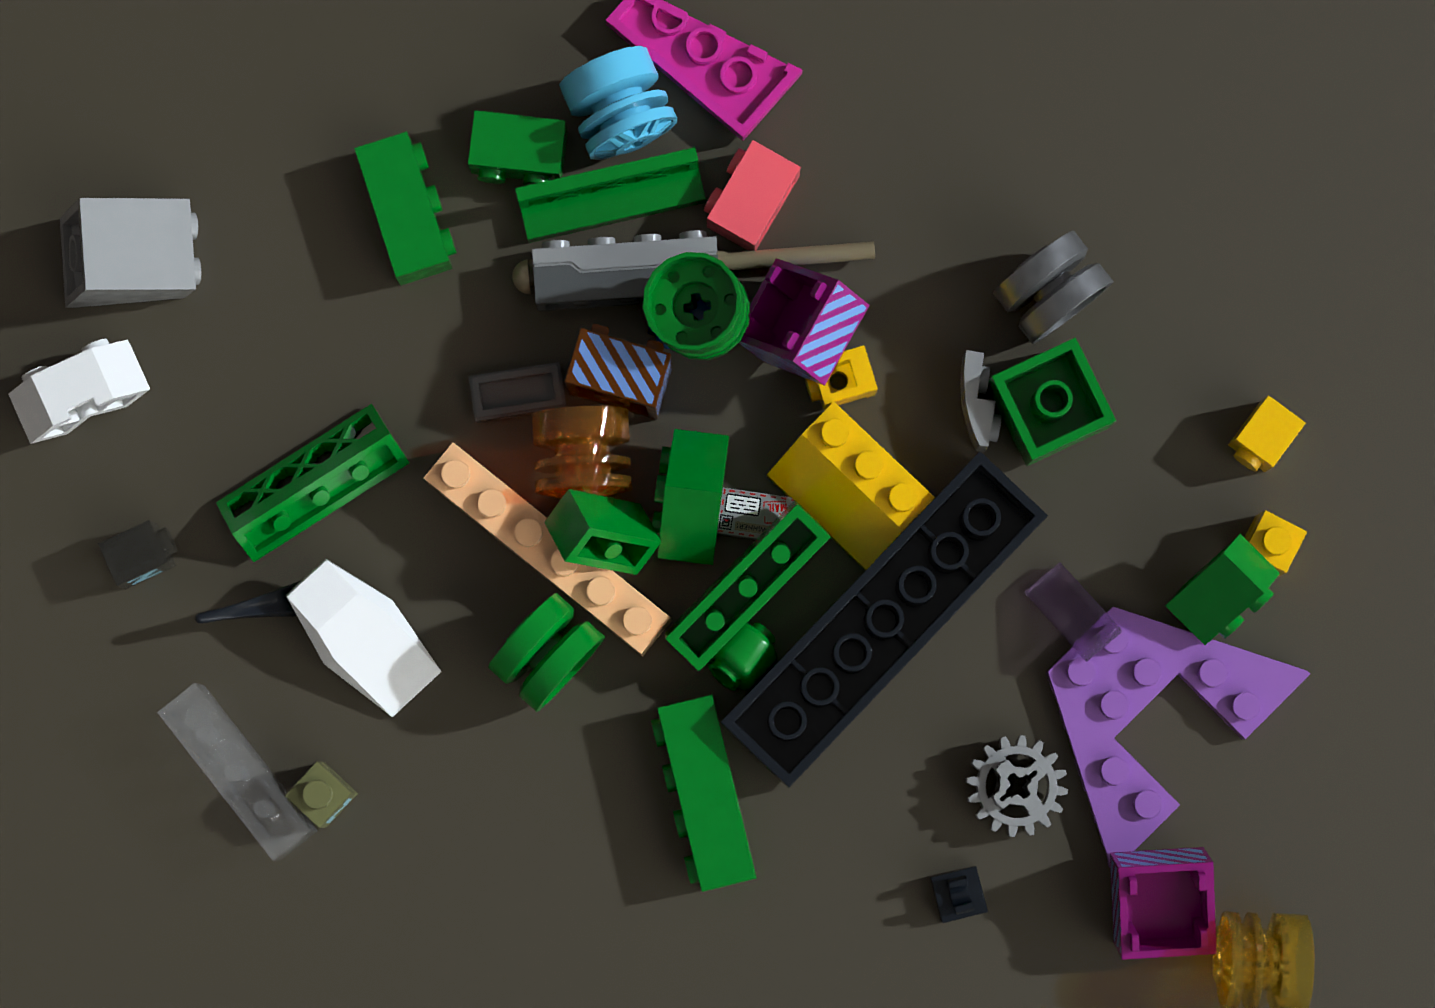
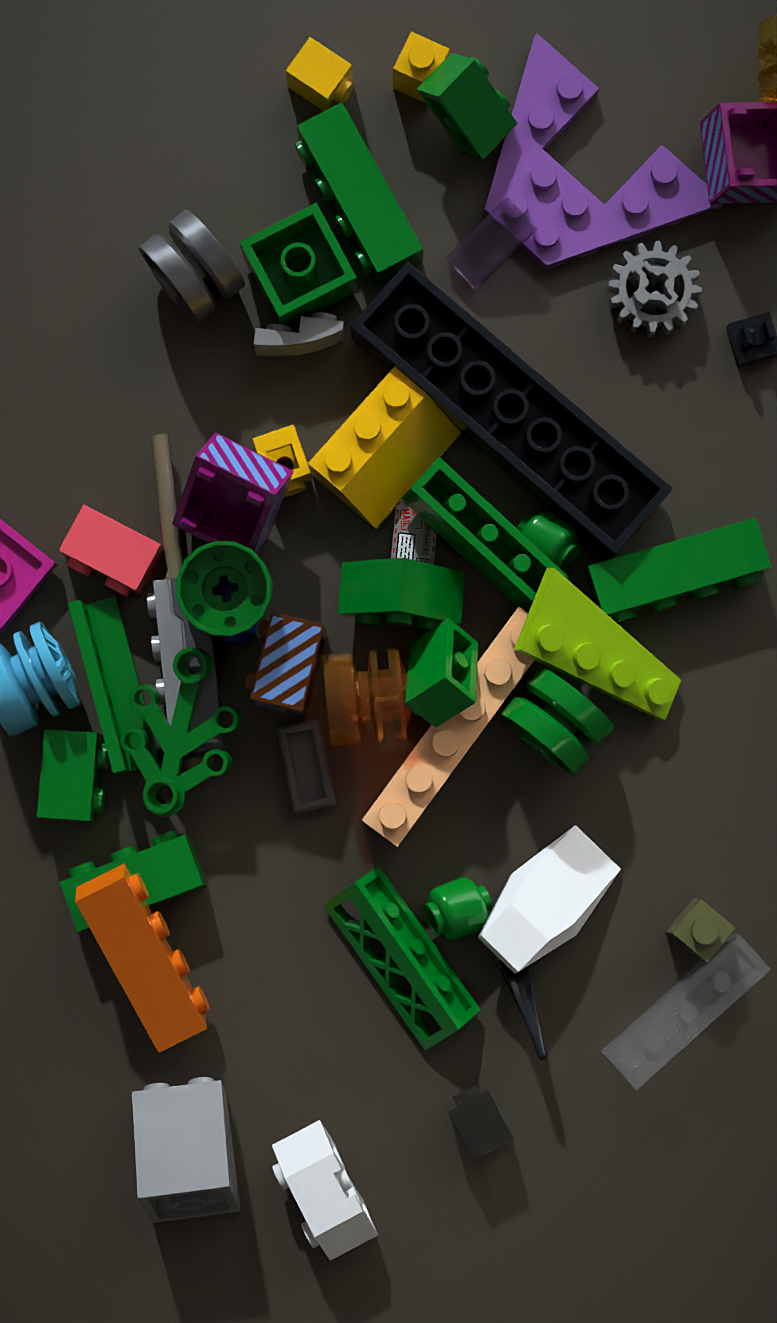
camera: 90 degrees left, 0 degrees up
(324, 212) = (142, 957): none -> orange brick
(358, 541) = (457, 909): none -> green head
(549, 254) = (176, 739): none -> green plant
(627, 686) = (589, 646): none -> lime wing
(1132, 471) = (359, 194): none -> green brick

